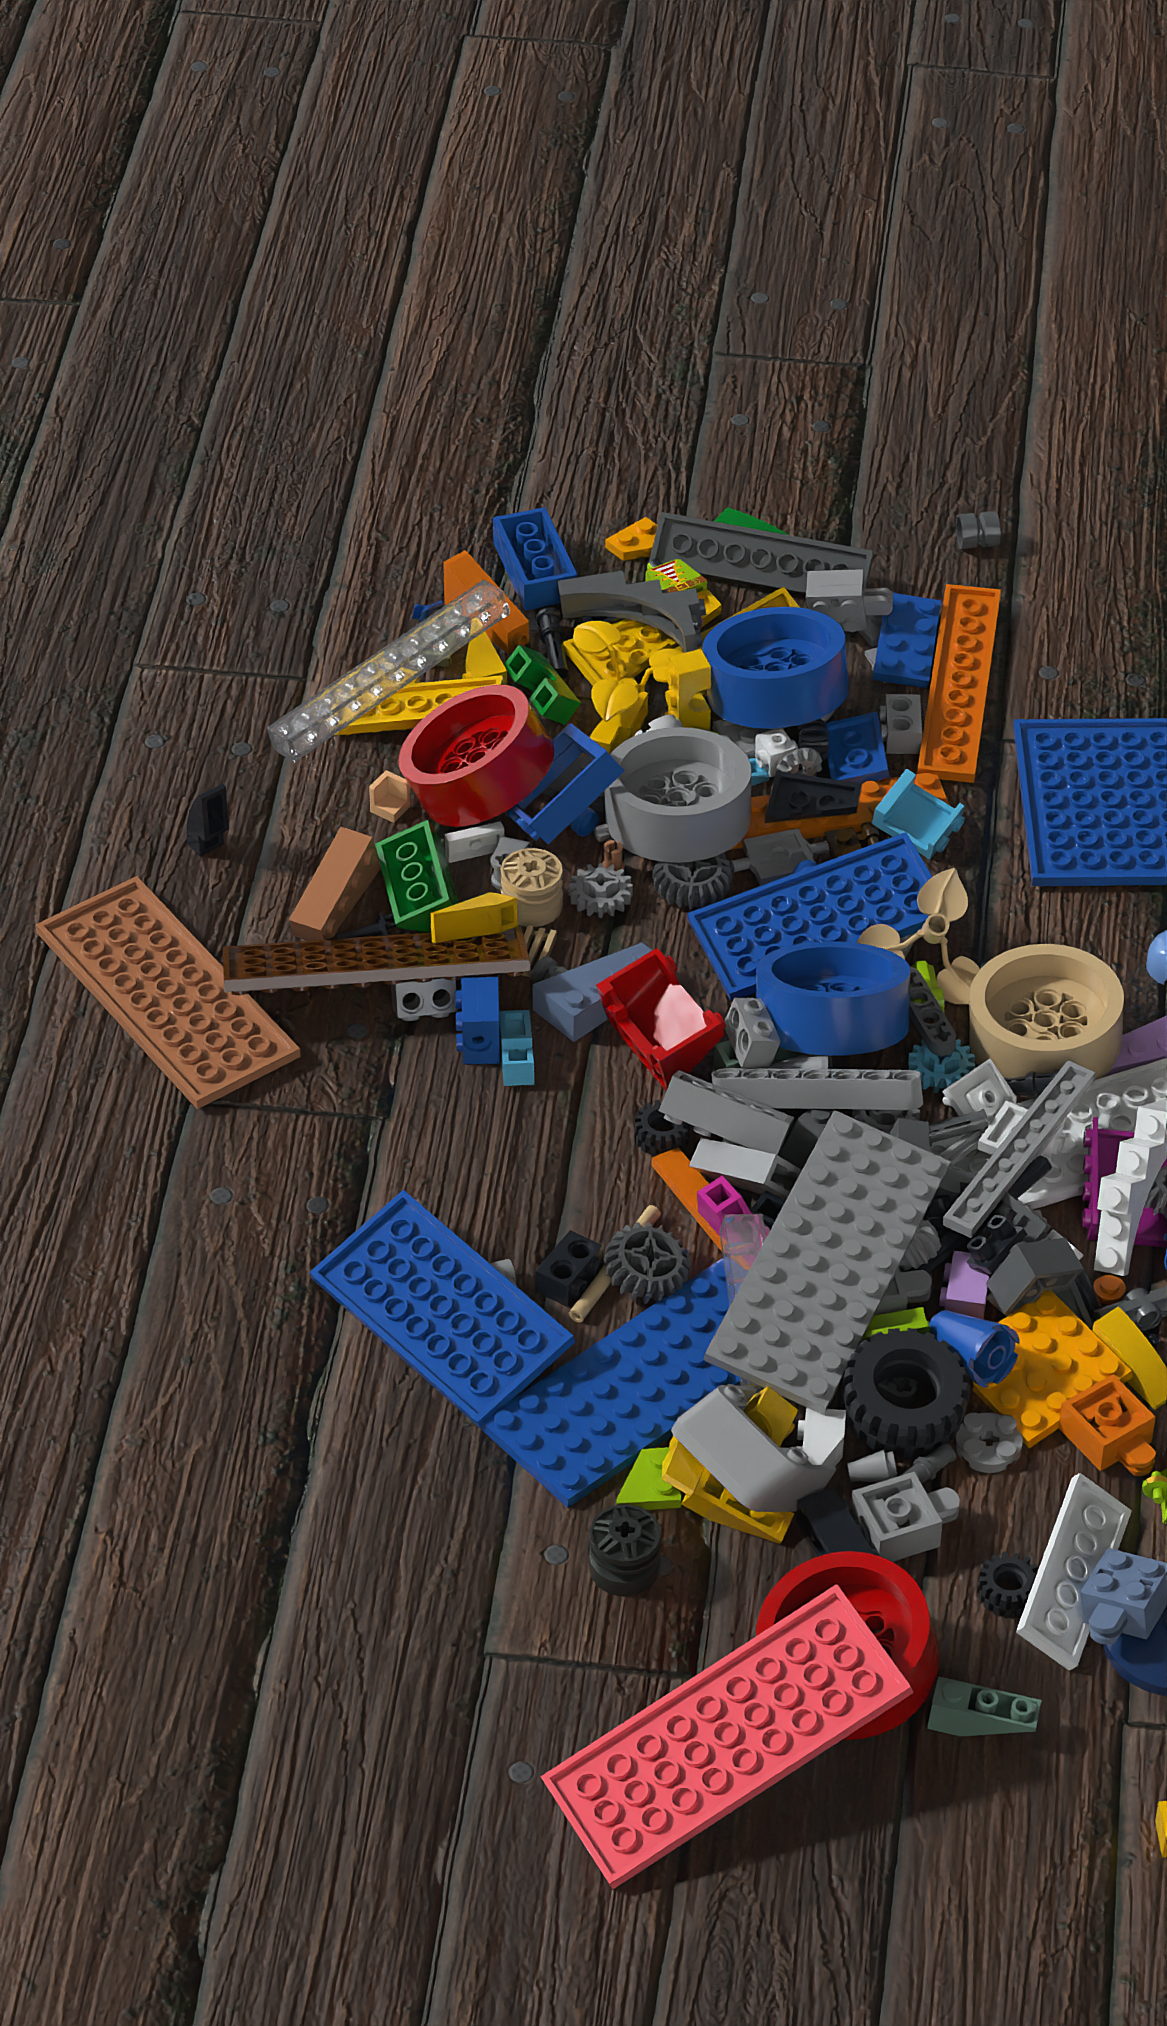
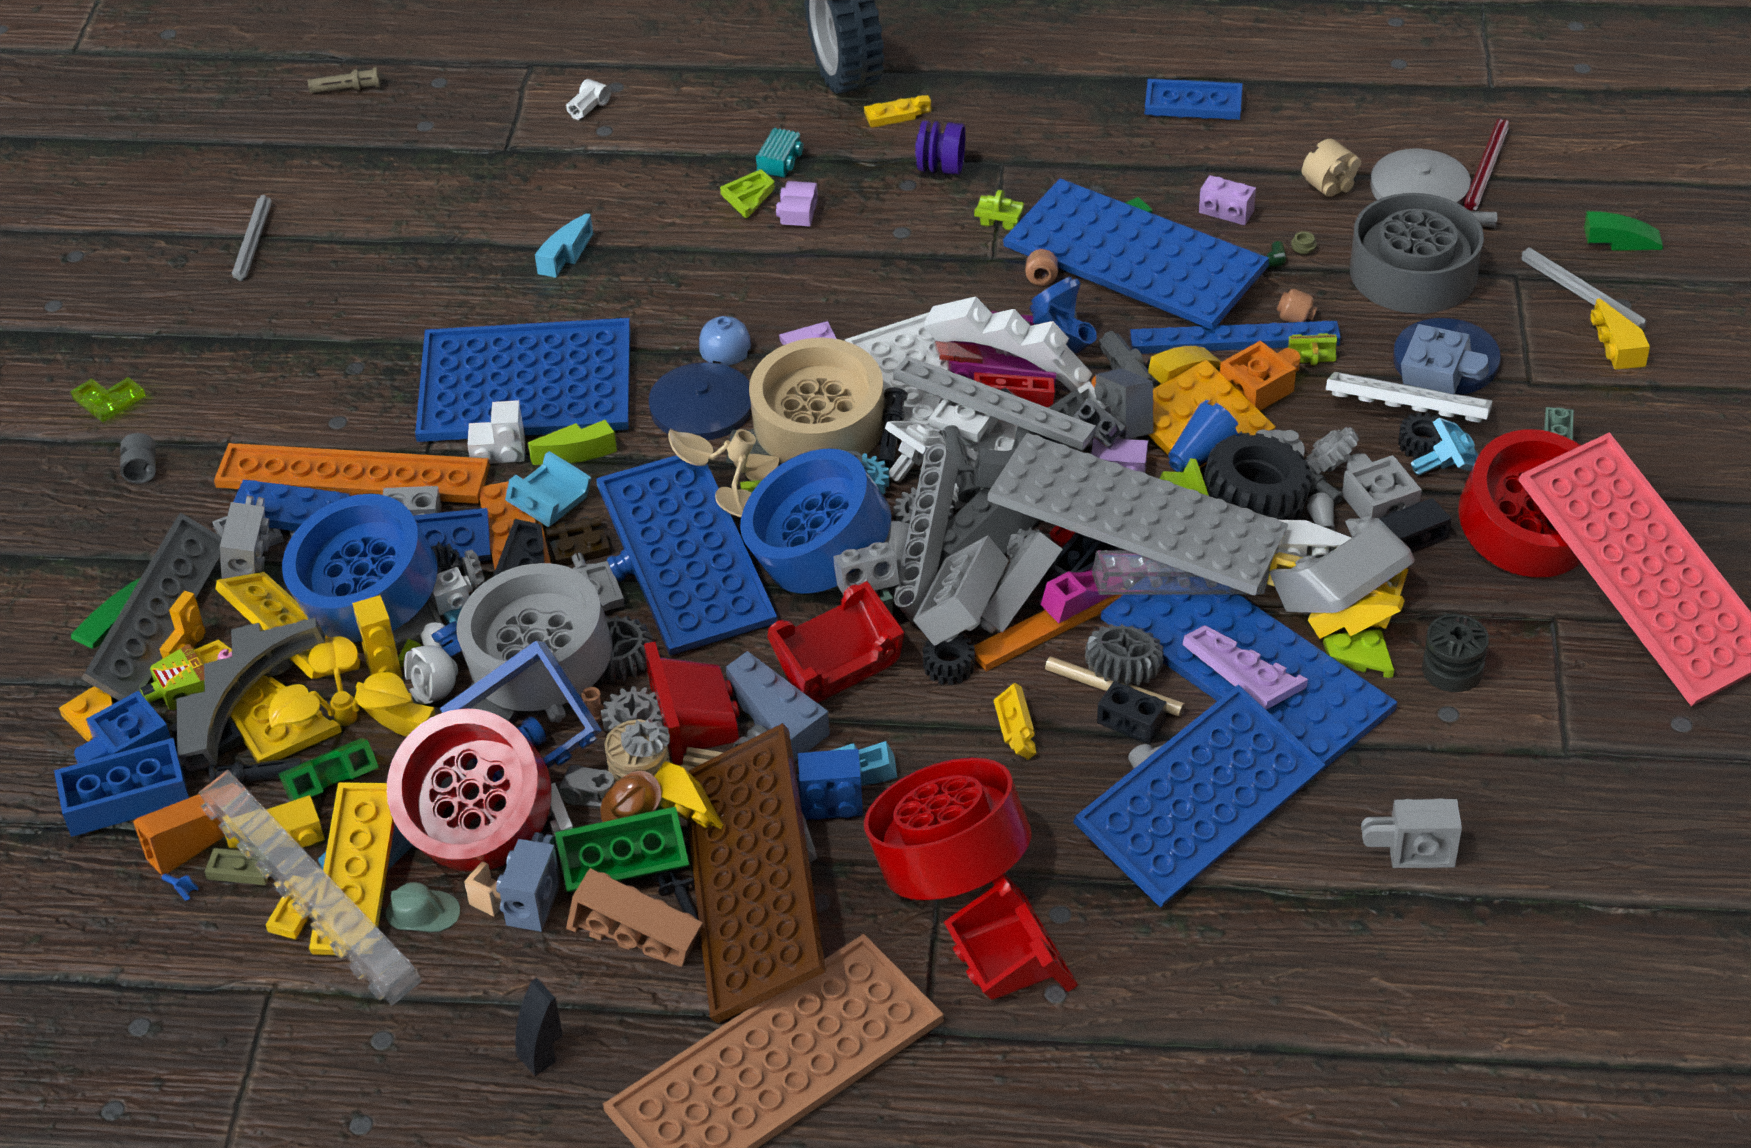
camera: 90 degrees left, 0 degrees up
(273, 1152) = (1006, 942): none -> red windscreen
(360, 1480) = (1418, 833): none -> light grey brick
(378, 755) = (422, 909): none -> sand green piece
(384, 810) = (529, 882): none -> sand blue brick
(388, 1084) = (948, 828): none -> red wheel
(474, 877) = (630, 796): none -> dark orange piece
(523, 876) = (640, 747): none -> light grey gear
(560, 1177) = (1015, 721): none -> yellow hinge
(600, 550) = (121, 728): none -> blue brick
(602, 914) = (692, 703): none -> red windscreen
(609, 1358) = (1244, 667): none -> lavender wing
(732, 581) = (187, 624): none -> light orange plate
(966, 1475) = (1332, 450): none -> light grey gear
(971, 1600) = (1454, 448): none -> medium azure piece
(1001, 841) = (575, 443): none -> lime slope
(1003, 779) = (501, 438): none -> white brick
(1067, 1189) = (1034, 389): none -> red slope
(1074, 506) = (108, 402): none -> clear neon green plate
(1085, 926) = (701, 400): none -> dark blue dish
(1114, 1125) = (958, 352): none -> clear red piece

